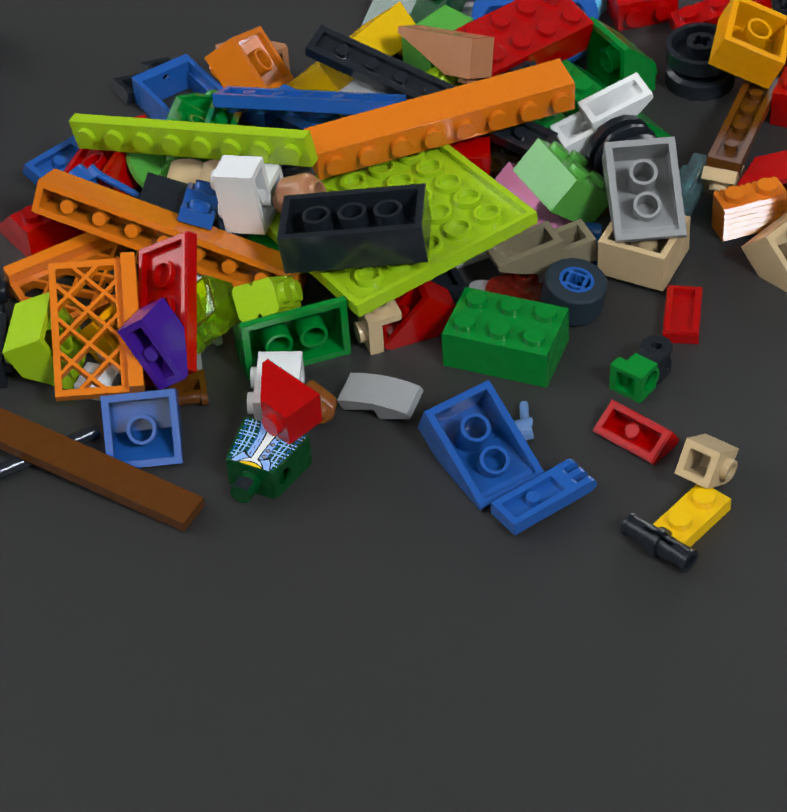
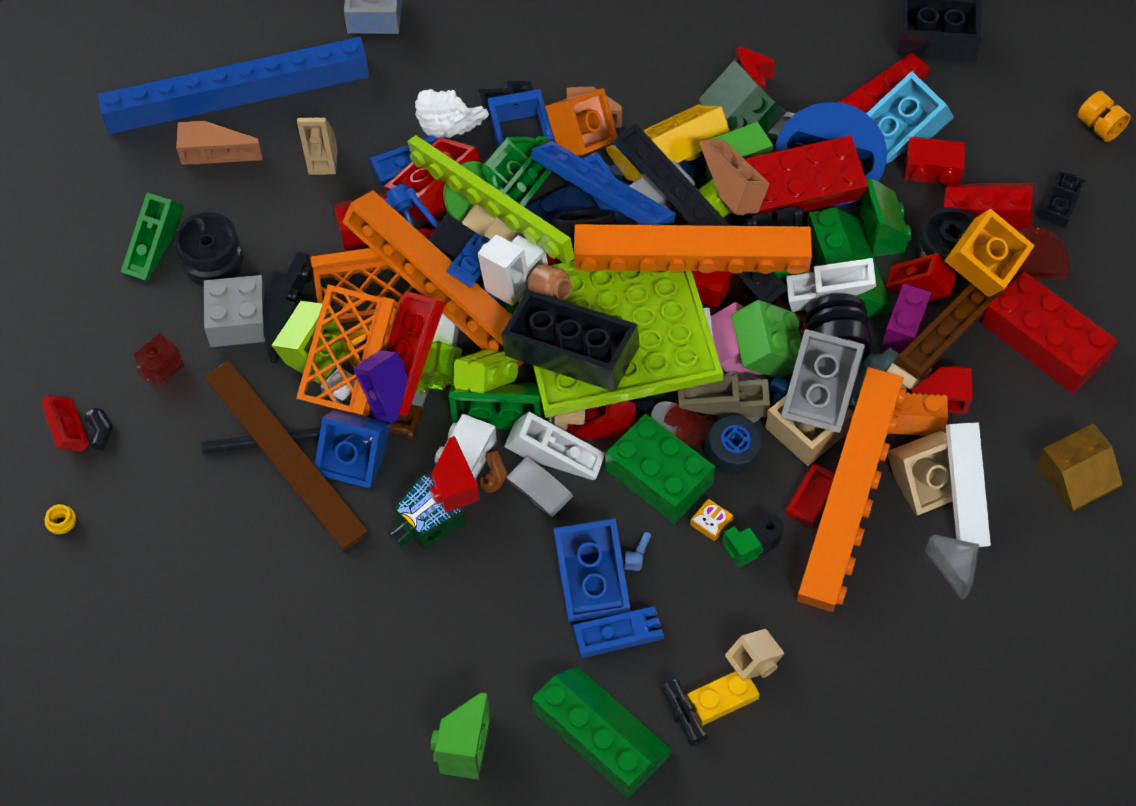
camera: 20 degrees right, 15 degrees up
(92, 96) = (445, 114): none -> white piece
(365, 350) = (553, 447): none -> white slope
(428, 641) = (462, 739): none -> bright green slope
(572, 593) = (600, 730): none -> green slope
(586, 368) = (711, 520): none -> tile
(635, 433) = (719, 598): red slope -> none
(688, 98) = (926, 273): none -> red slope
(692, 129) = (906, 318): none -> magenta brick
(726, 286) = (850, 490): none -> orange brick

